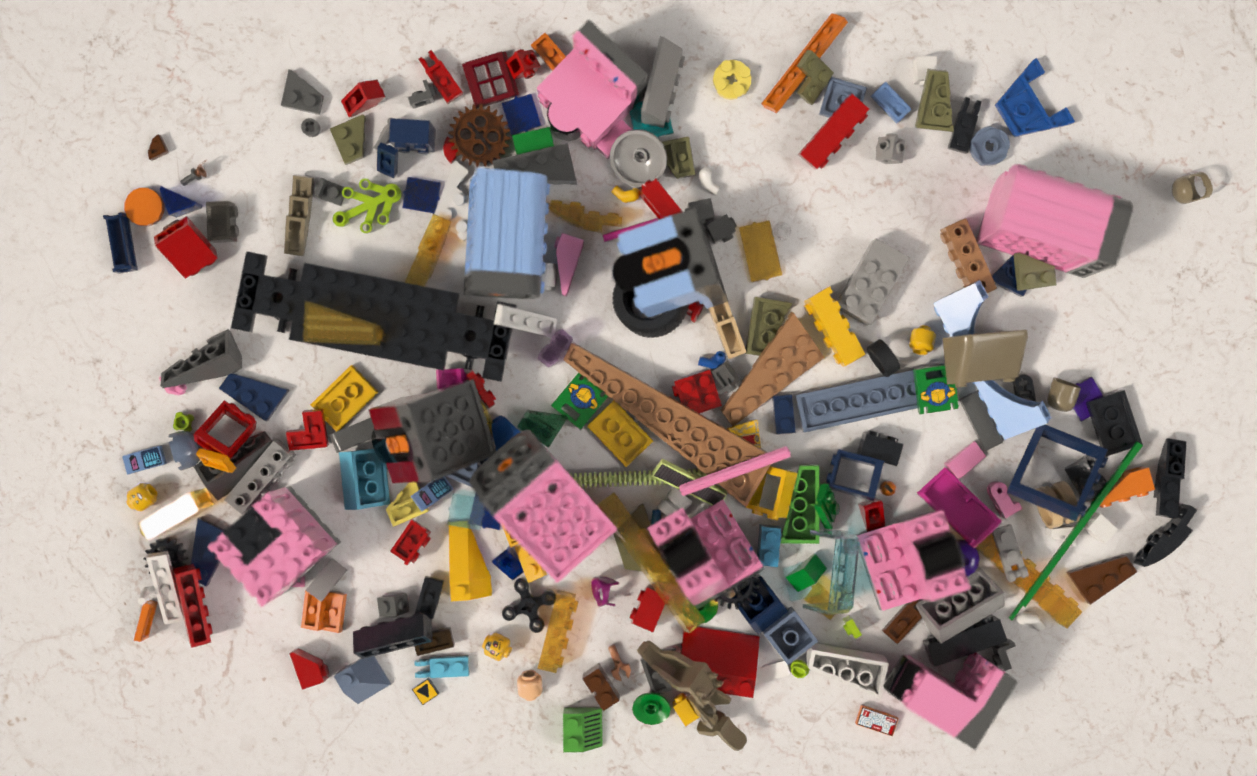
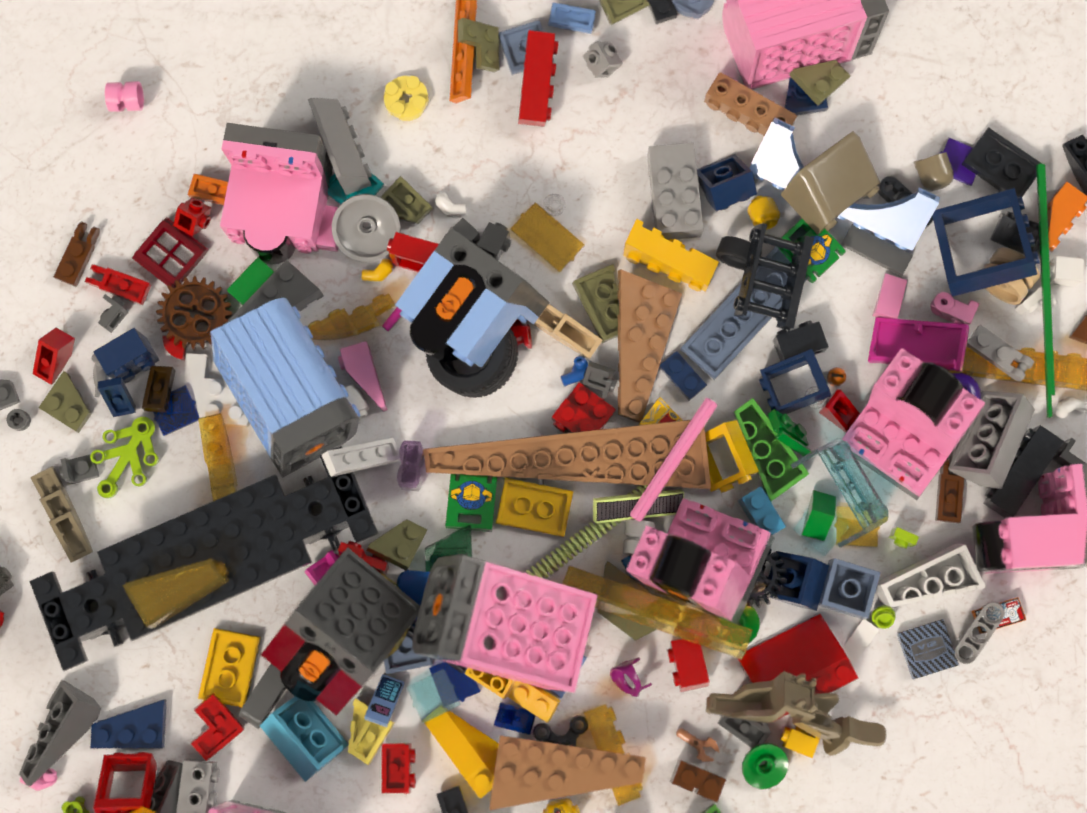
camera: 35 degrees left, 10 degrees down
(419, 173) = (158, 389): none -> dark brown plate
(425, 35) = (76, 255): none -> reddish brown hinge
(507, 615) = (545, 771): none -> medium nougat wing
(511, 396) = (399, 544): none -> olive wing
(521, 114) = (222, 266): clear blue piece -> none
(813, 709) = (927, 649): none -> tile
(848, 730) = (975, 643): none -> light grey beam
(911, 402) = (795, 271): none -> black fence
(912, 300) = (726, 182): none -> dark blue slope

